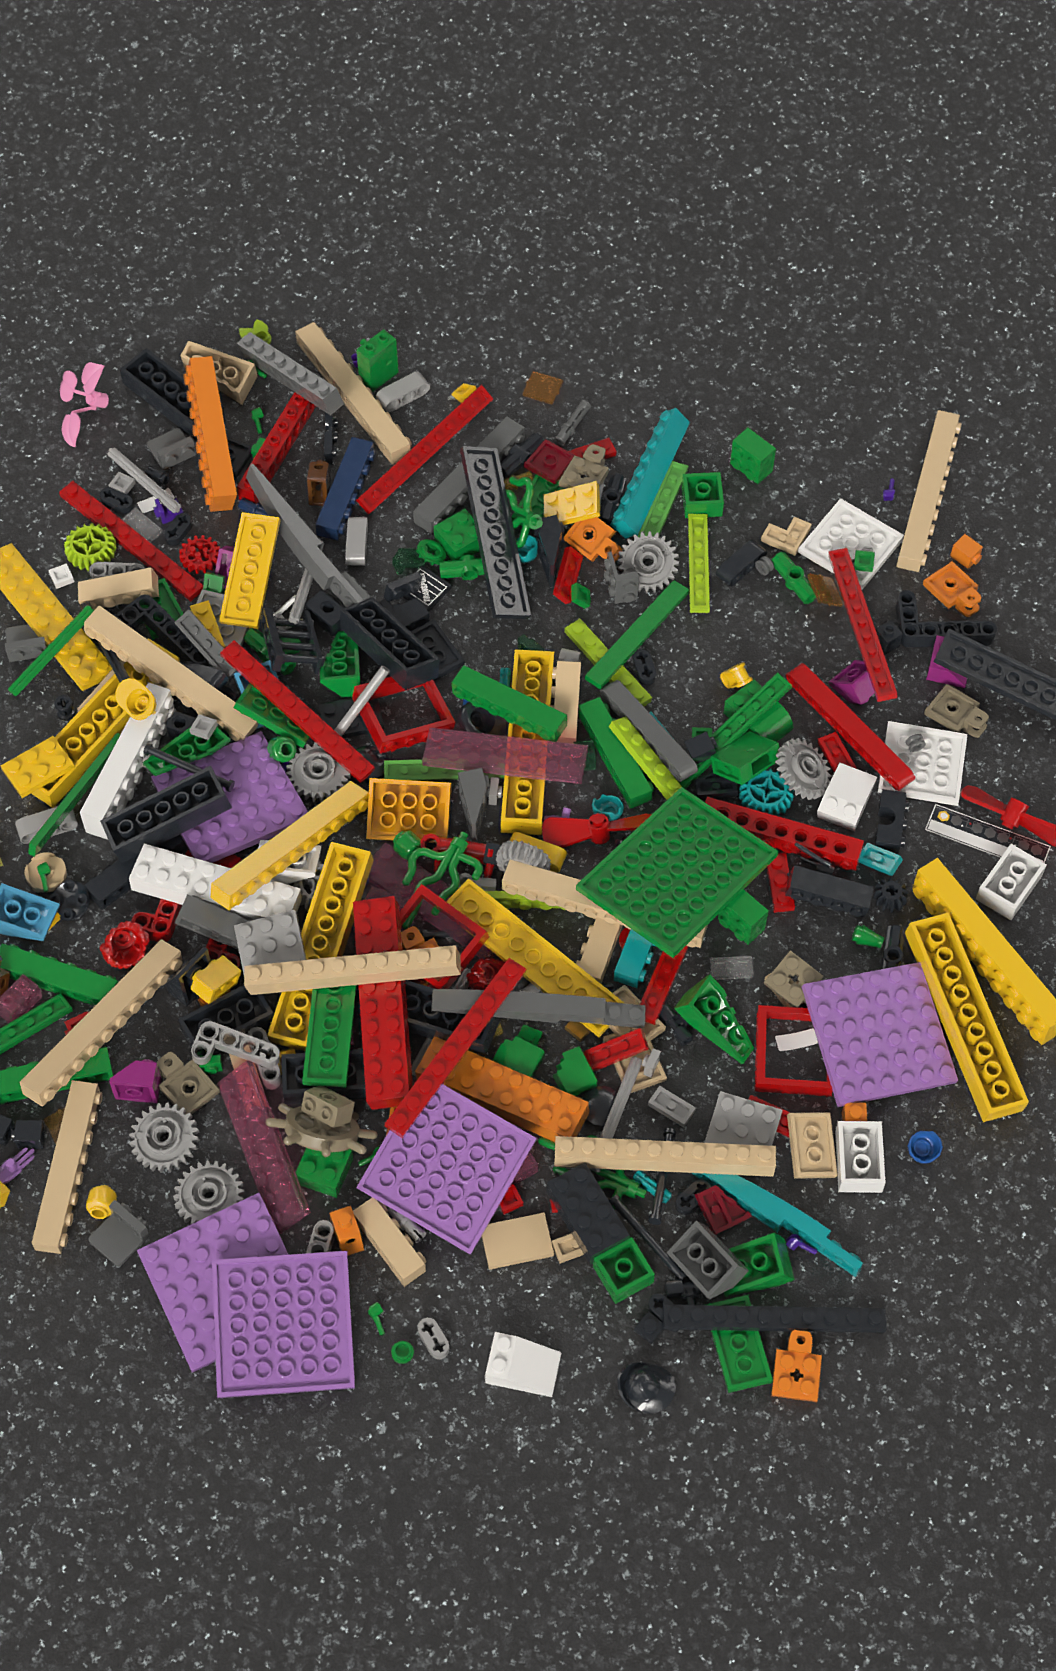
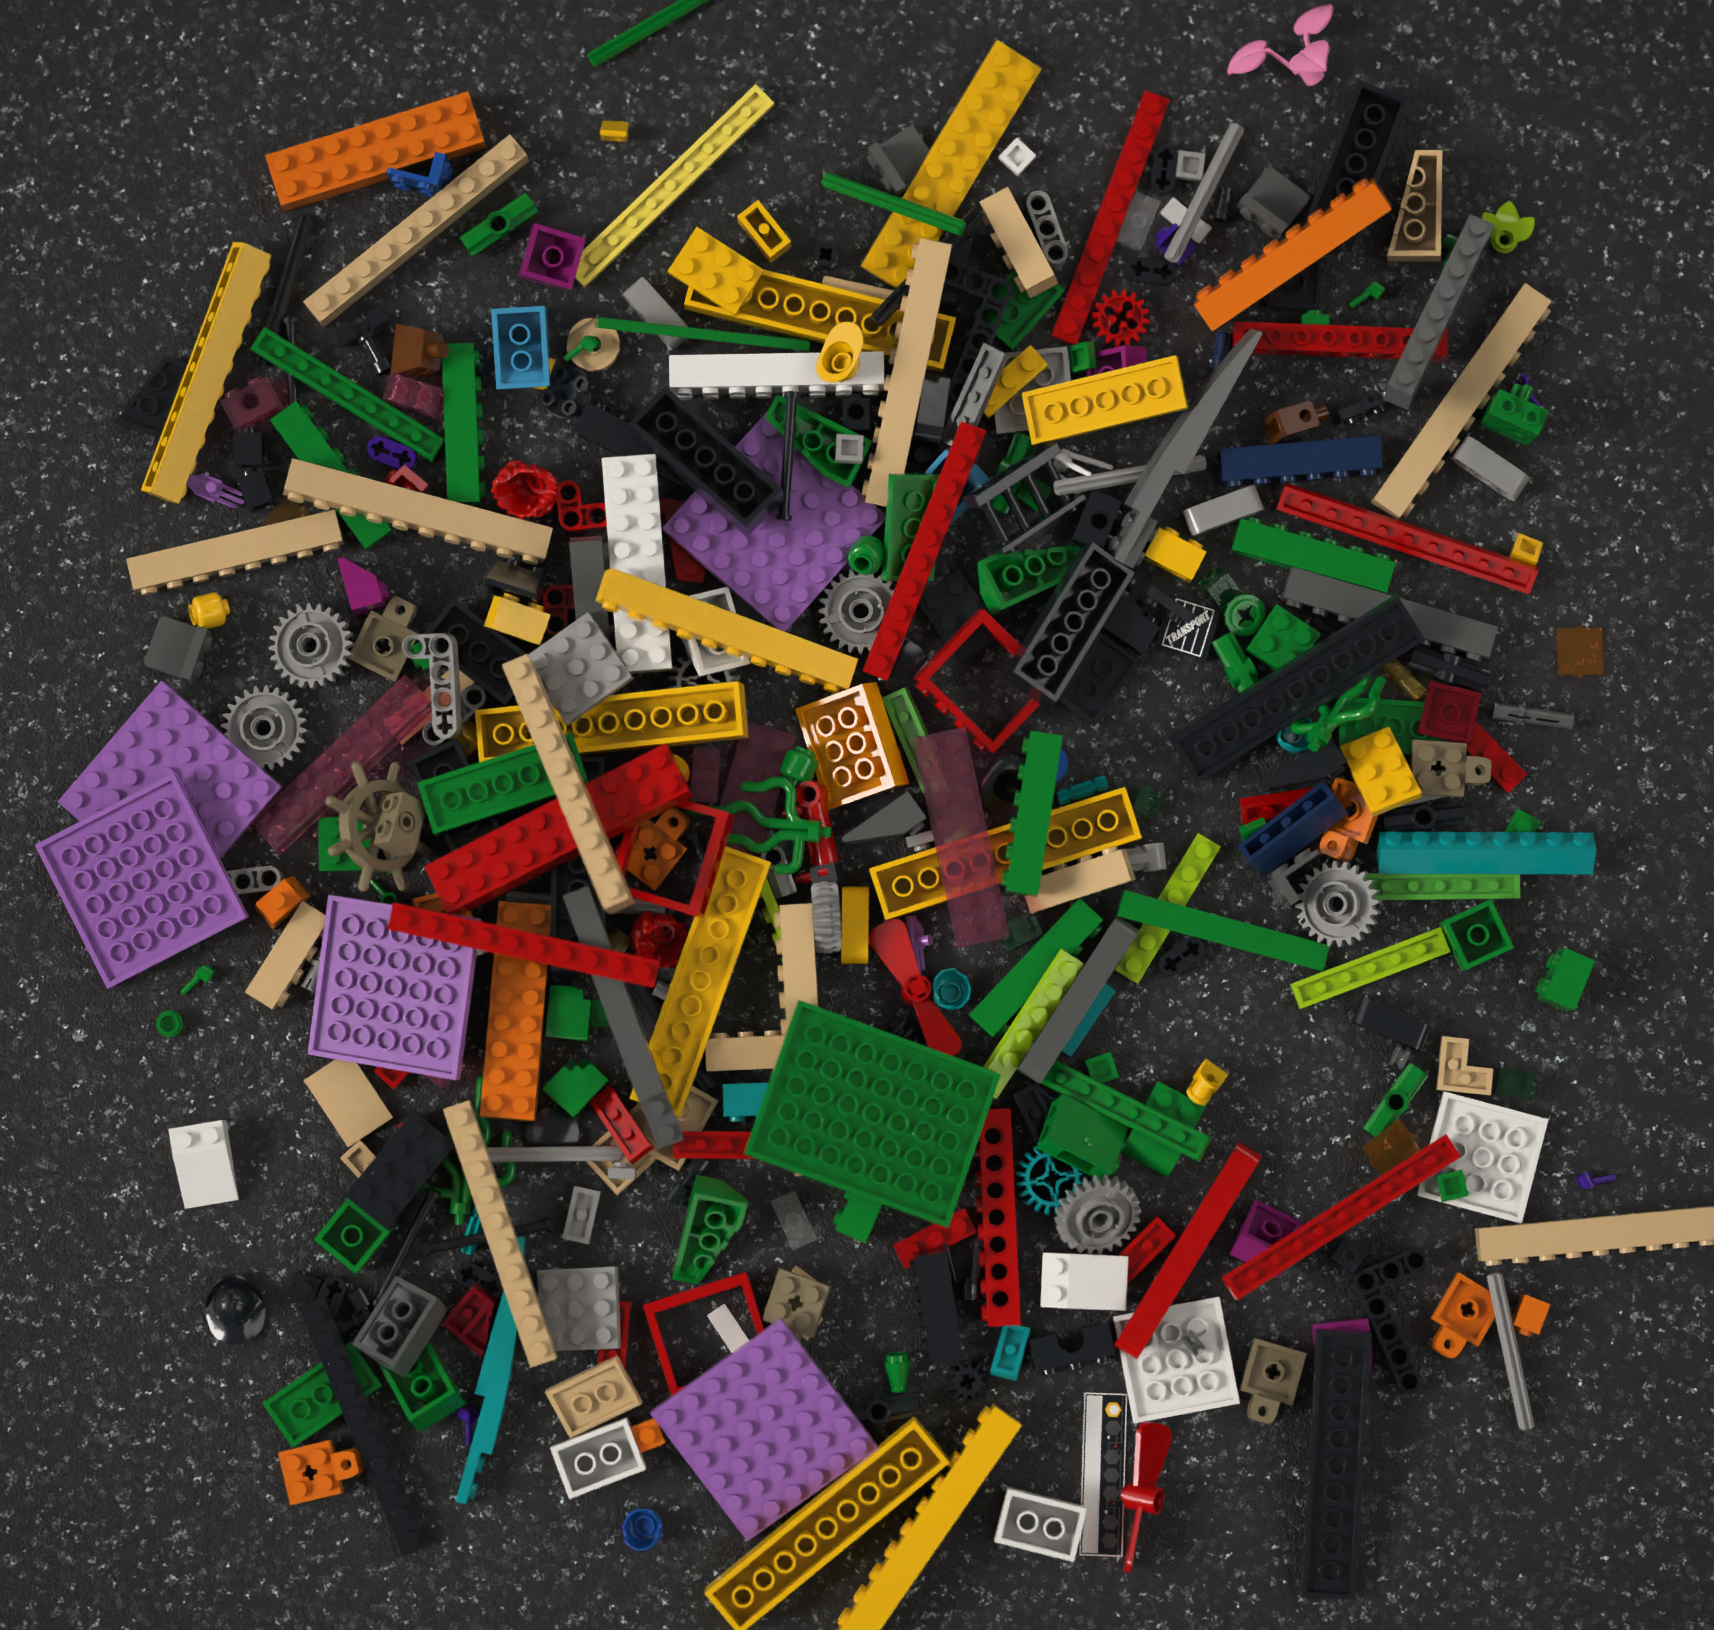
camera: 65 degrees right, 25 degrees up
(25, 734) = (764, 231): none -> yellow brick
(51, 1033) = (394, 448): none -> dark purple beam
(89, 546) = (1085, 168): lime gear -> none
(362, 700) = (961, 628): light grey piece -> none
(374, 575) = (1175, 554): none -> yellow brick
(399, 515) = (1300, 551): none -> green brick
(437, 1335) = (193, 1047): light grey beam -> none
(587, 568) = (1292, 829): none -> dark blue brick
(637, 451) = (1522, 822): none -> green plate
(701, 747) = (1071, 1077): black brick -> none
(810, 508) = (1515, 1083): none -> clear green bracket
(987, 568) = (1510, 1351): none -> light grey axle

